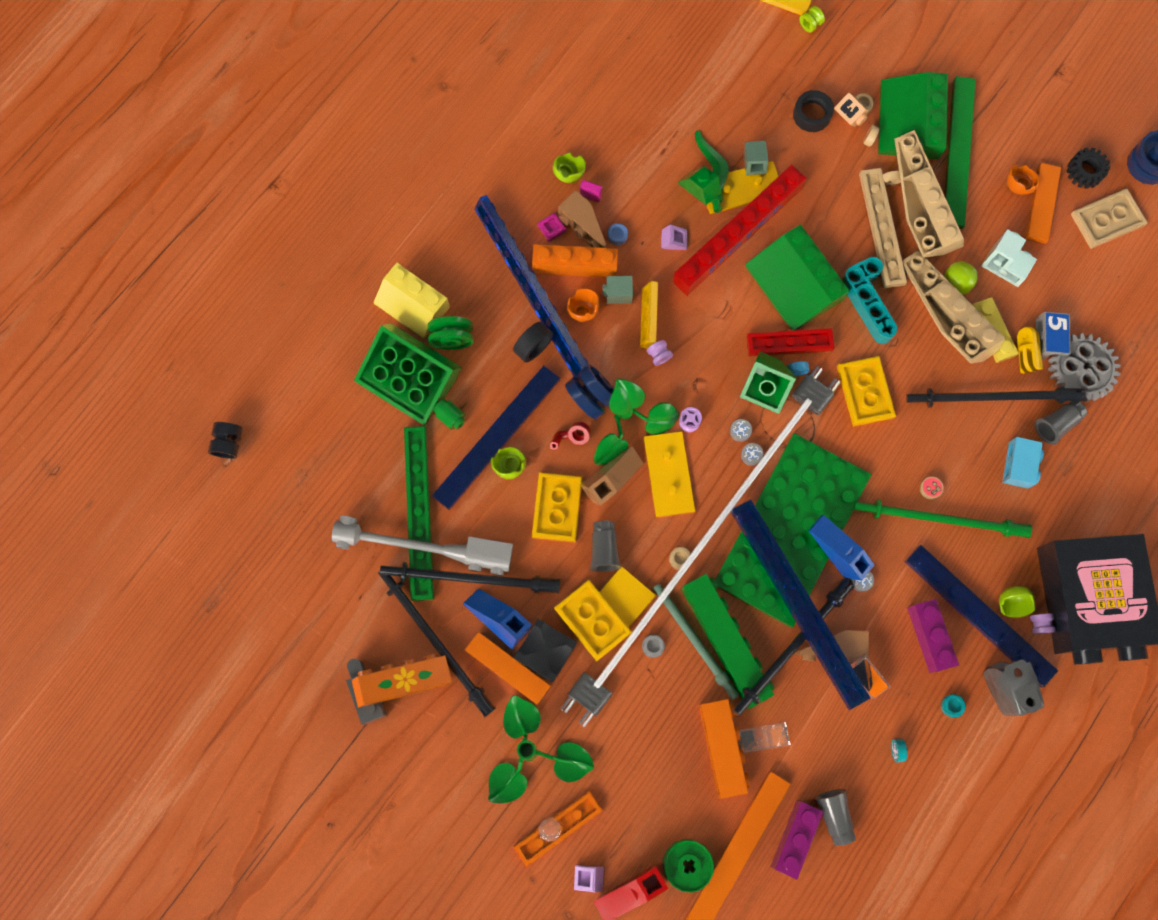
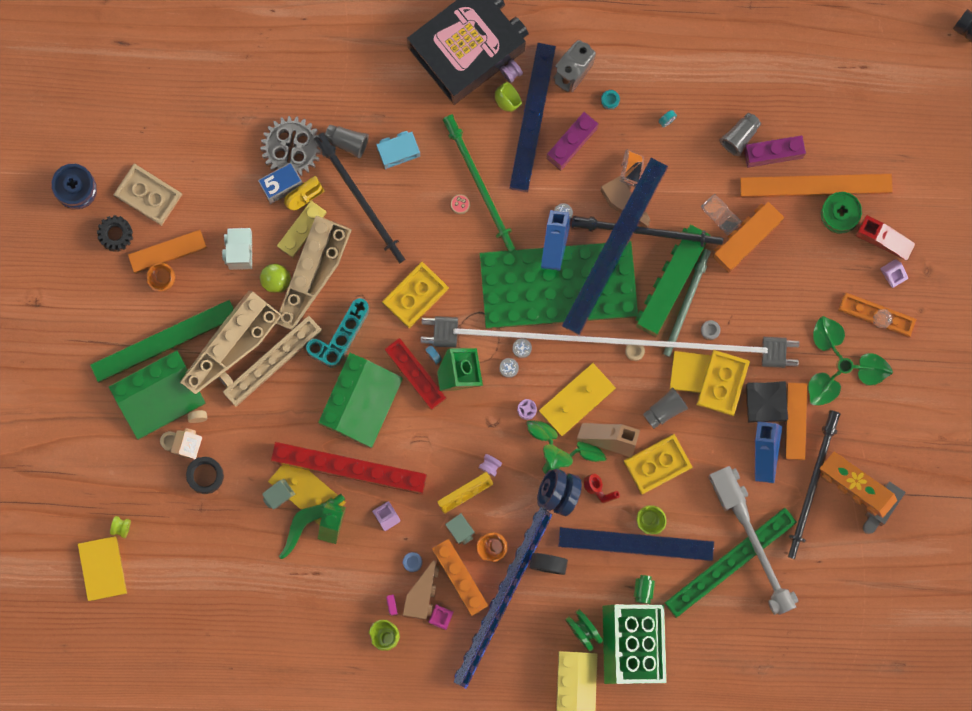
camera: 125 degrees left, 5 degrees up
(535, 584) = (725, 441): black bar -> none

